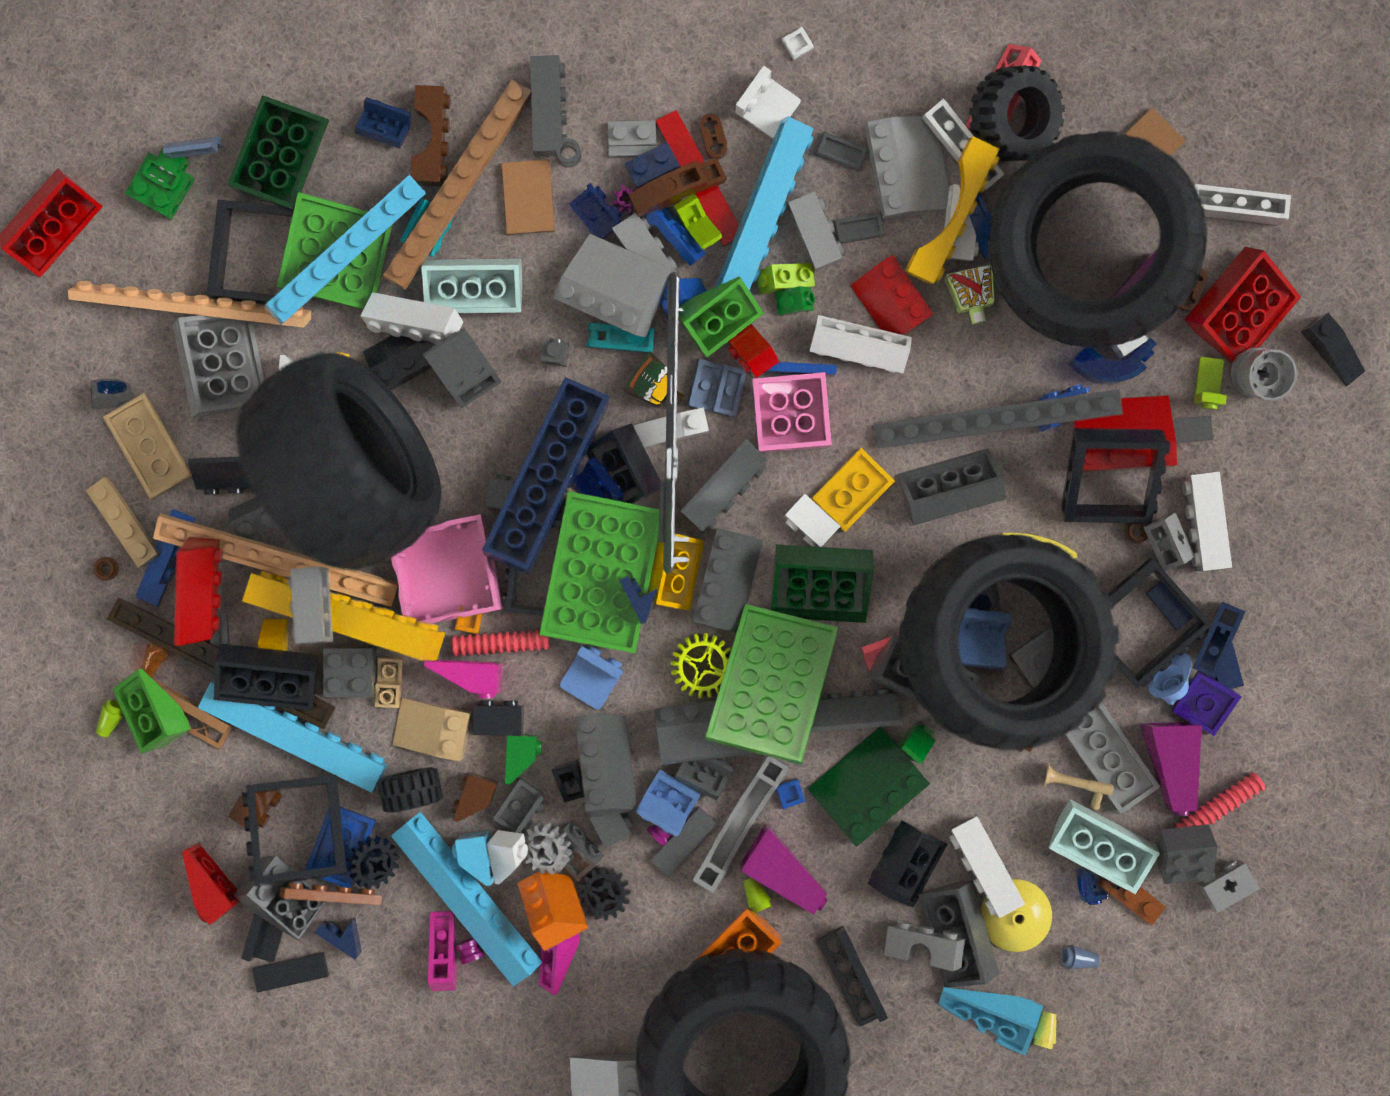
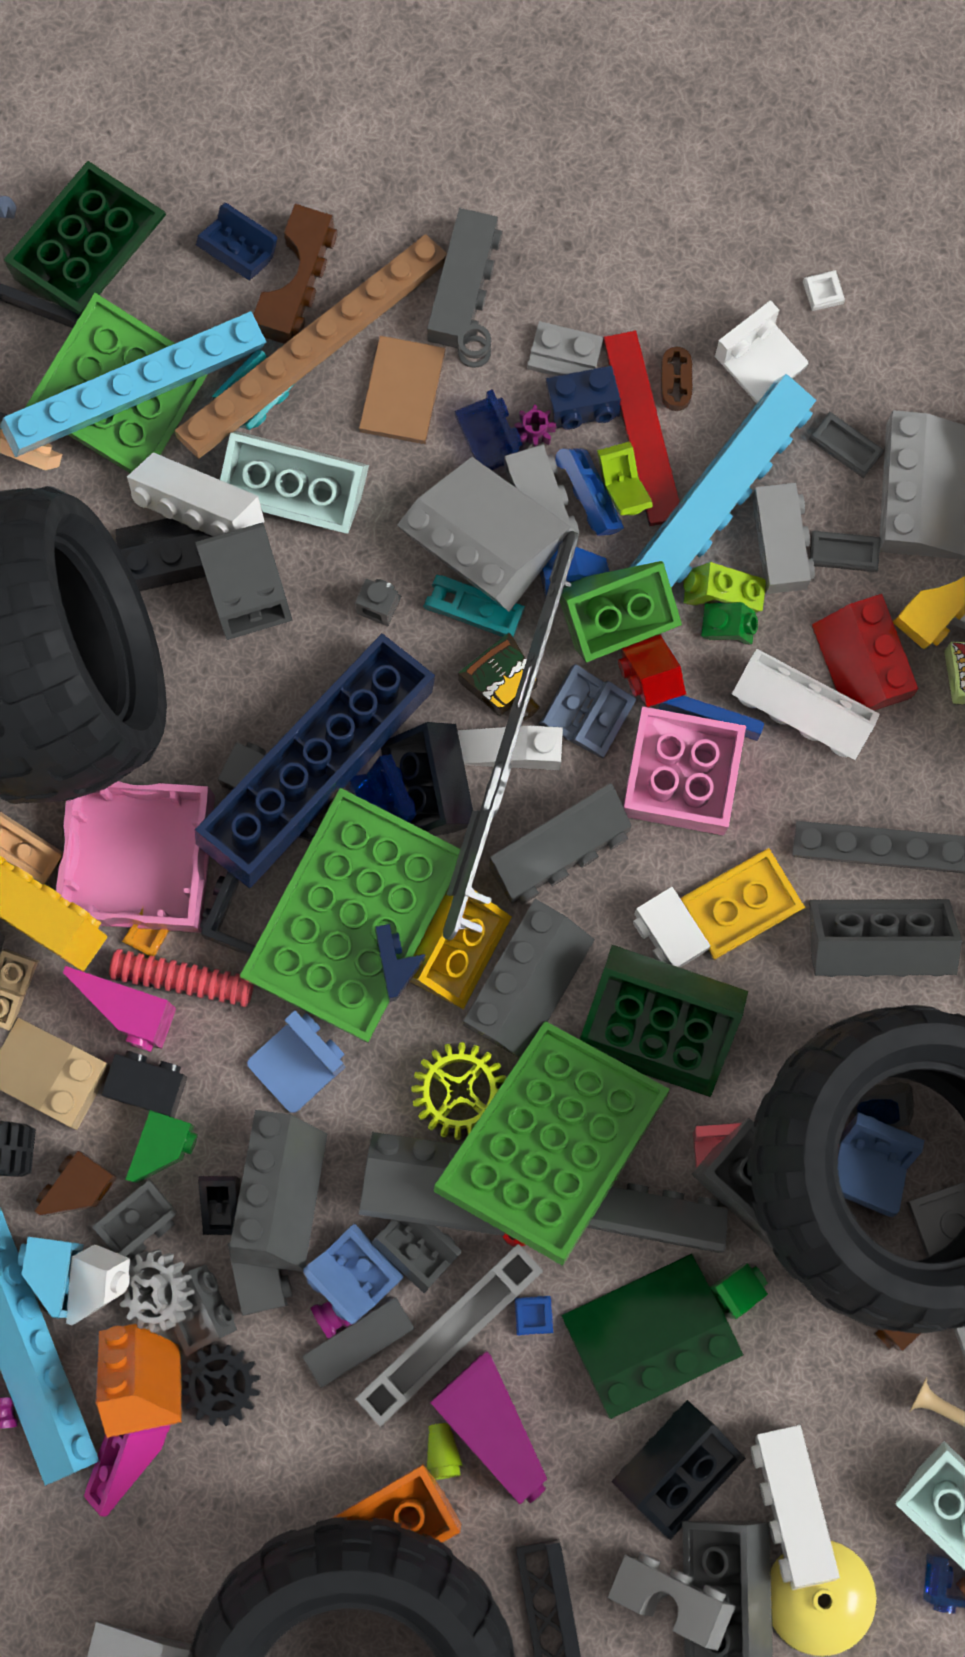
camera: 15 degrees right, 10 degrees down
(675, 185) = (607, 422): reddish brown slope -> none

